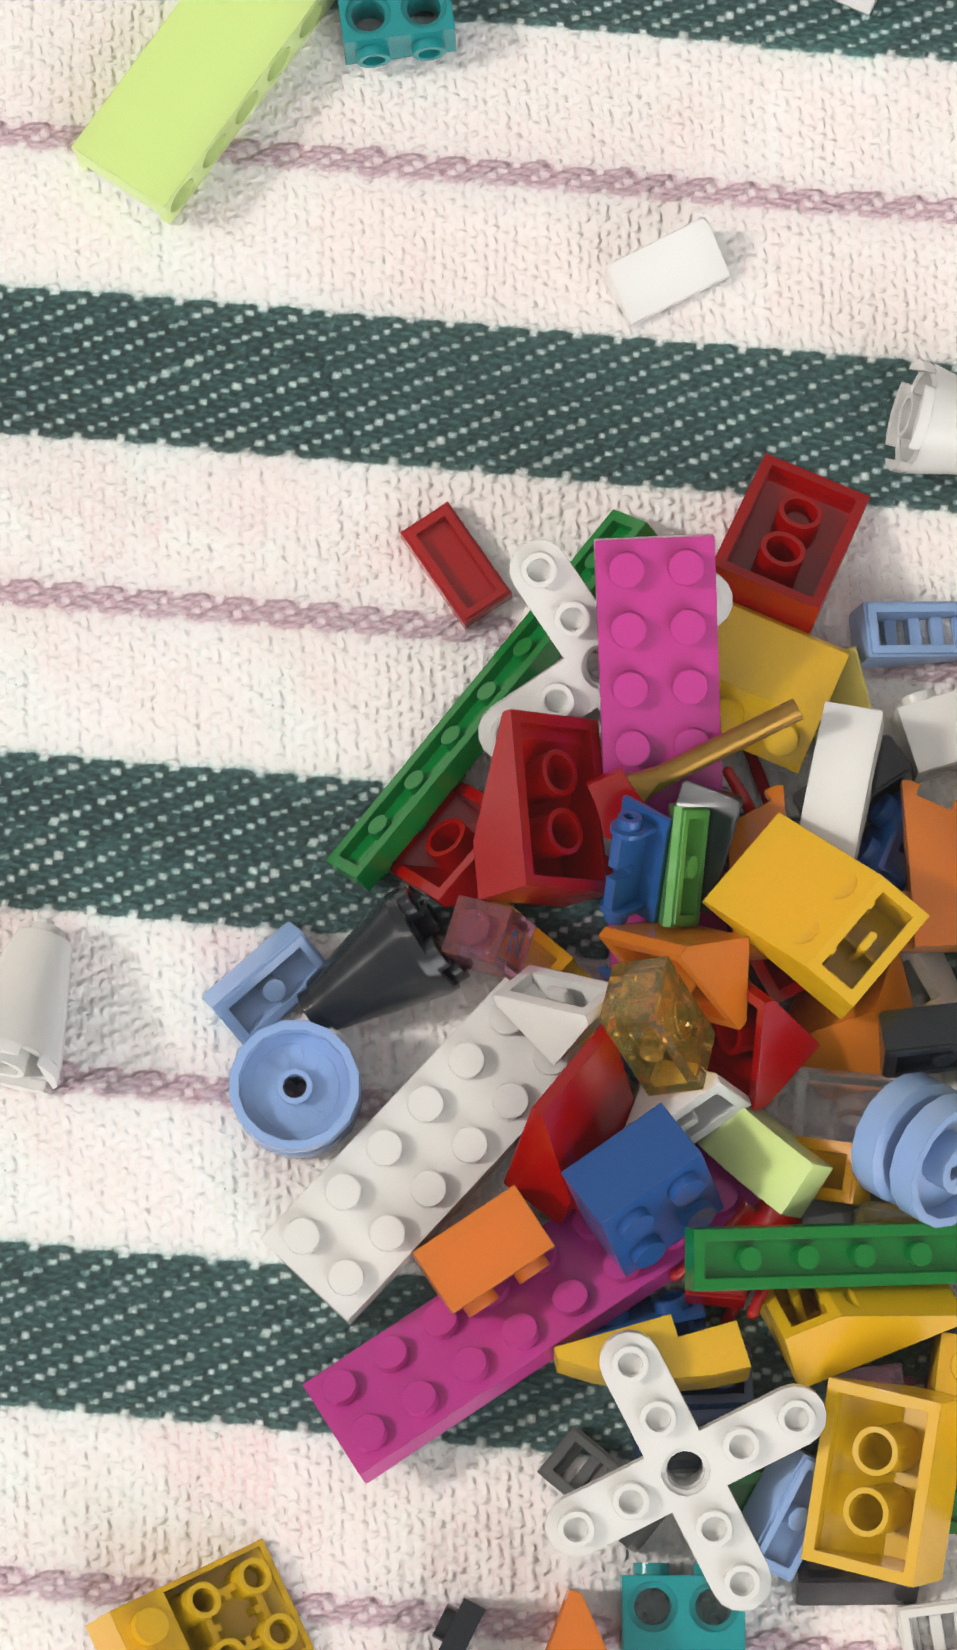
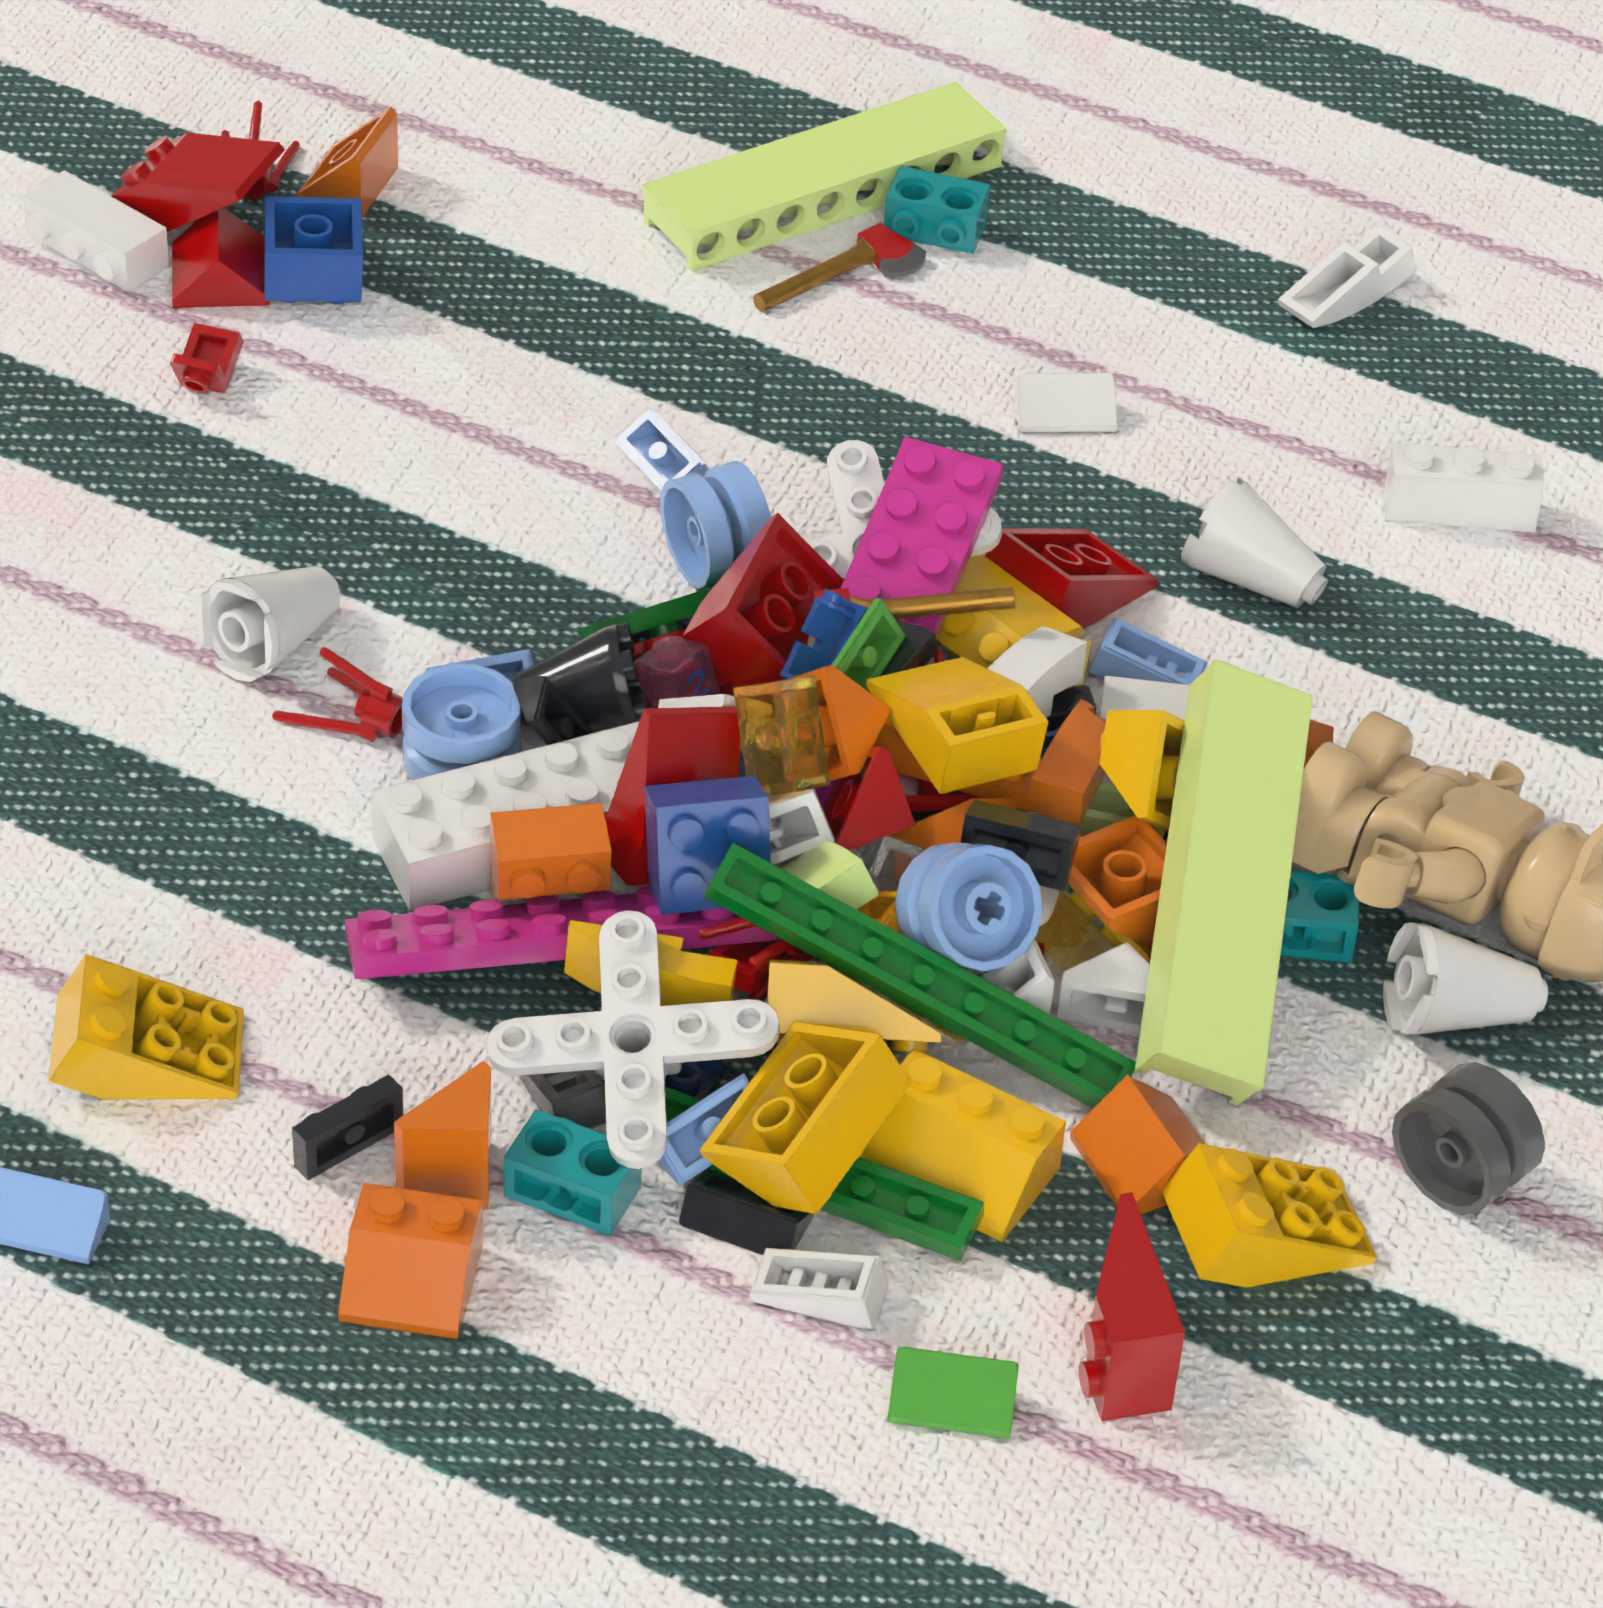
camera: 20 degrees right, 35 degrees down
(189, 1079) = (376, 705): none -> red plant
(287, 548) = (659, 450): none -> slope
(354, 95) = (877, 245): none -> piece
(387, 1047) = (548, 710): none -> black slope
(411, 670) = (711, 519): none -> light blue wheel
(456, 565) = (795, 499): red tile -> none

